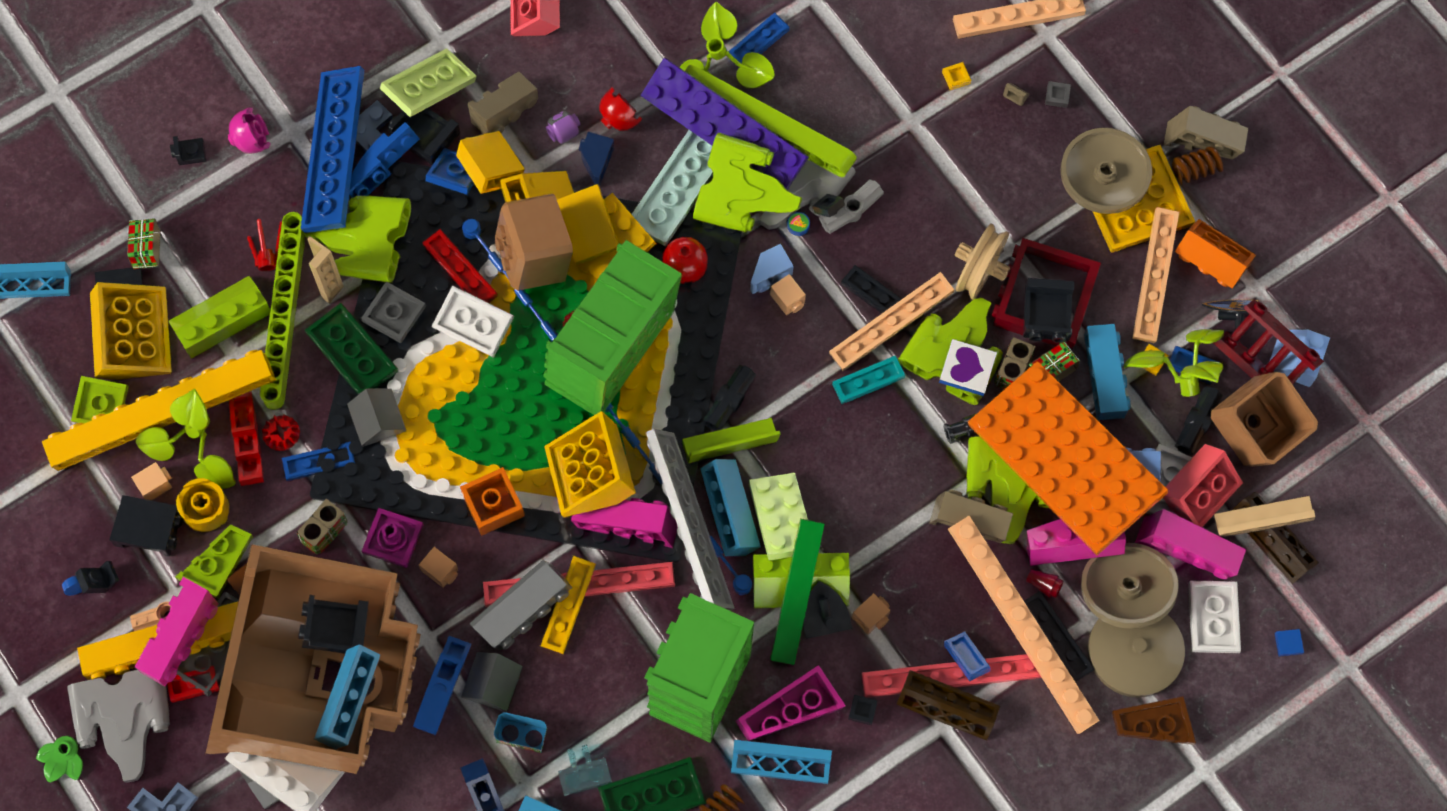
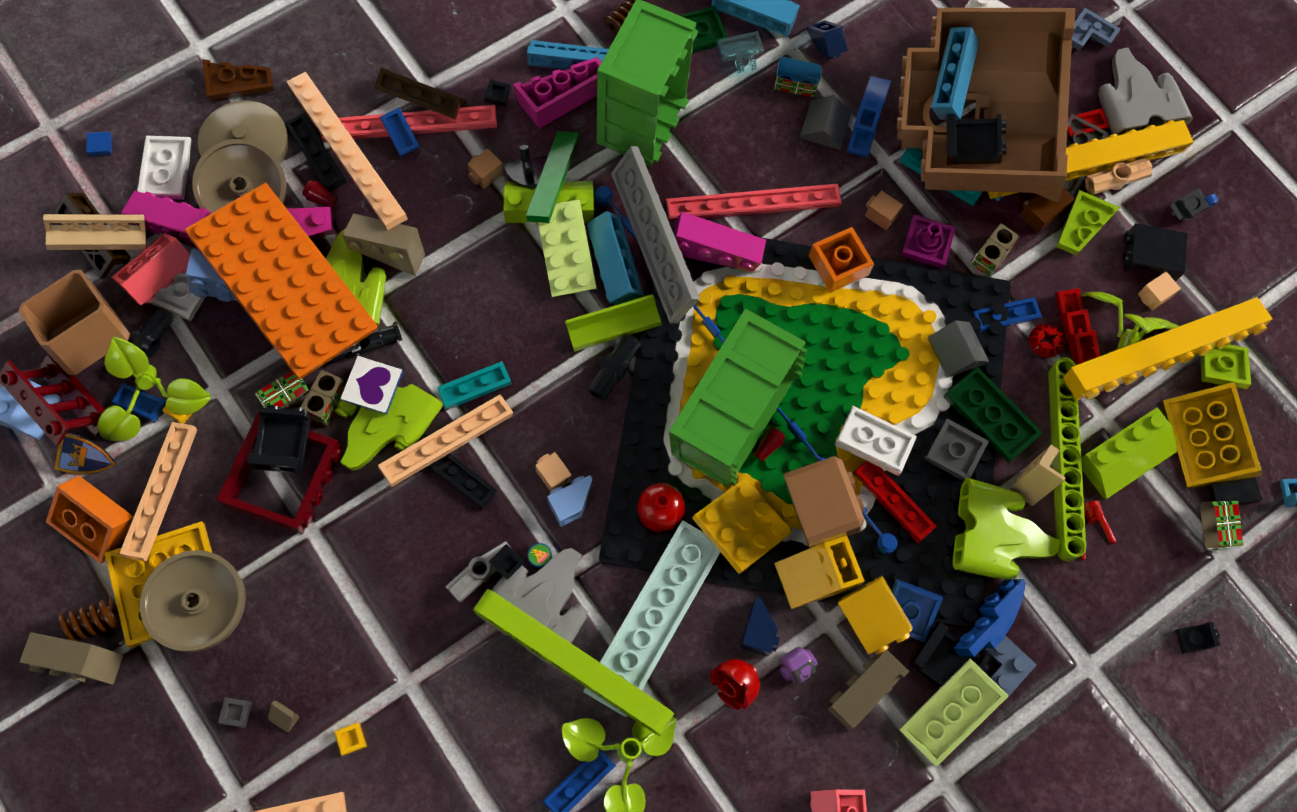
camera: 175 degrees right, 0 degrees up
(60, 763) = (1183, 69): bright green plate -> none
(177, 632) = (1111, 140): dark pink wedge -> none
(190, 505) = (1108, 266): yellow brick -> none
(248, 132) = (1138, 653): dark pink cylinder -> none
(332, 150) = (1046, 633): blue plate -> none
(522, 605) = (805, 170): slope -> none
(566, 611) = (762, 180): yellow tile -> none
(588, 224) = (766, 534): yellow tile -> none
(589, 467) = (752, 278): yellow slope -> none
(709, 113) = (621, 654): dark purple plate -> none
(740, 188) = (602, 576): lime rock -> none
(982, 261) = (344, 490): tan wheel -> none
(1106, 372) = (229, 391): dark azure brick -> none

